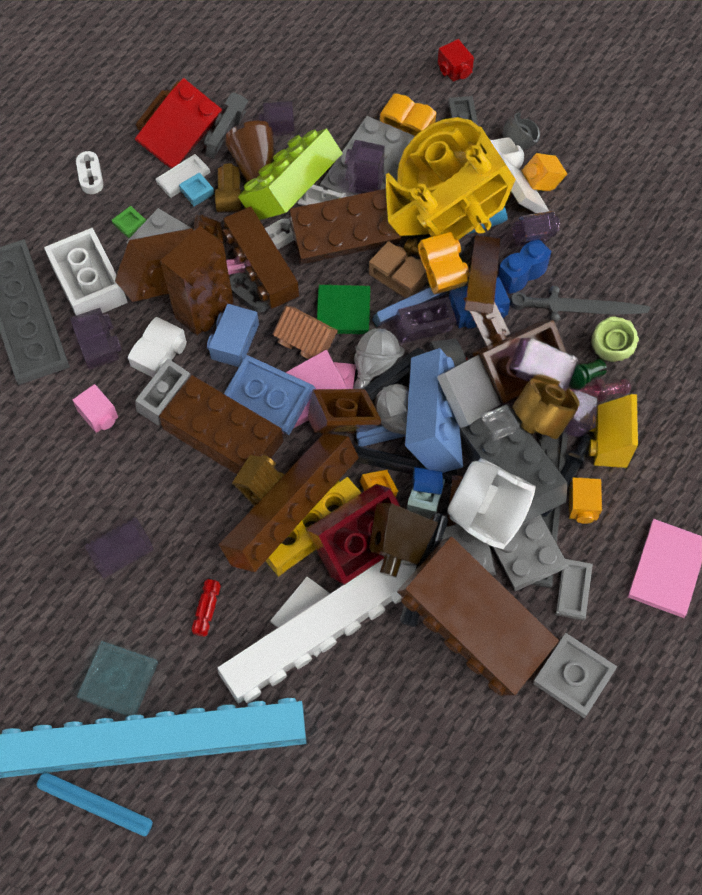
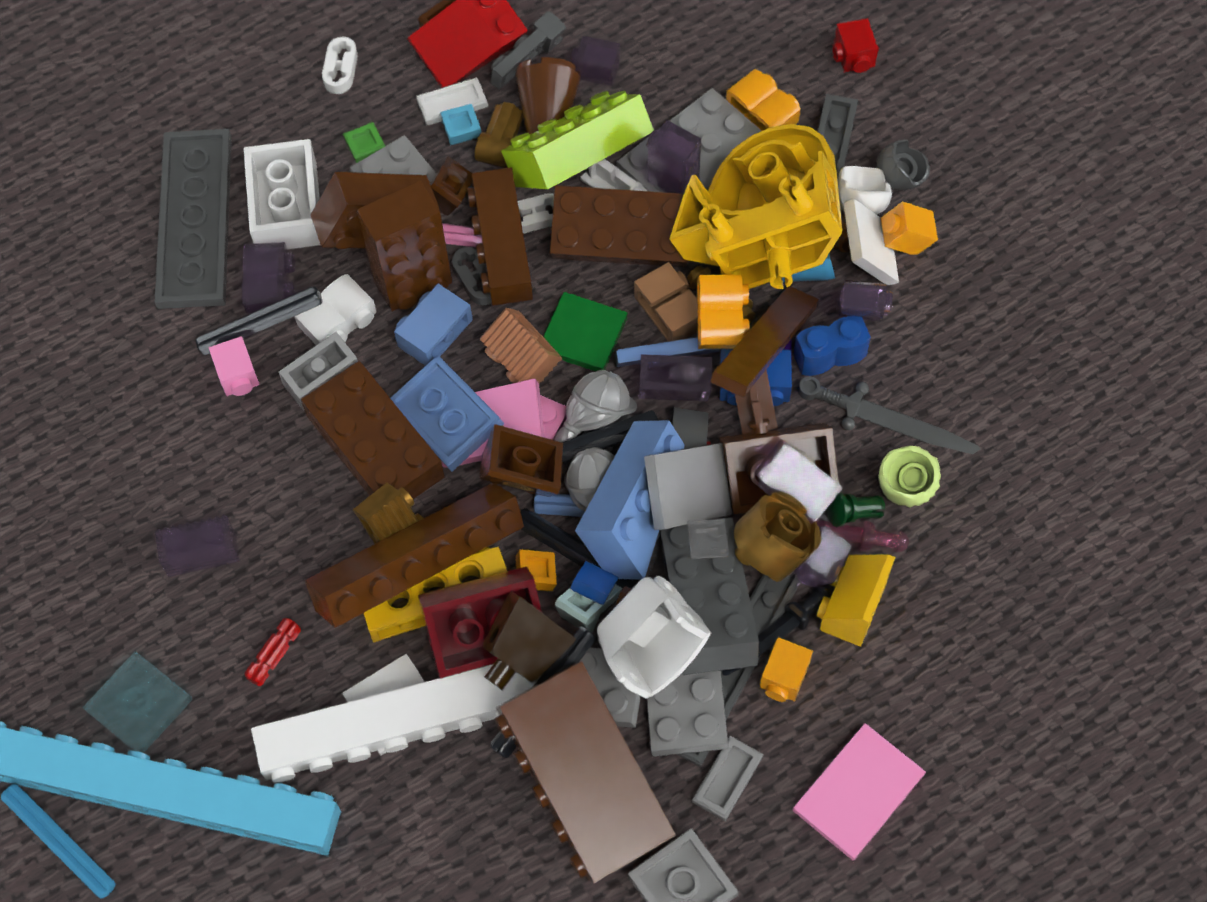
camera: 20 degrees right, 0 degrees up
(103, 368) = (261, 319): none -> axle

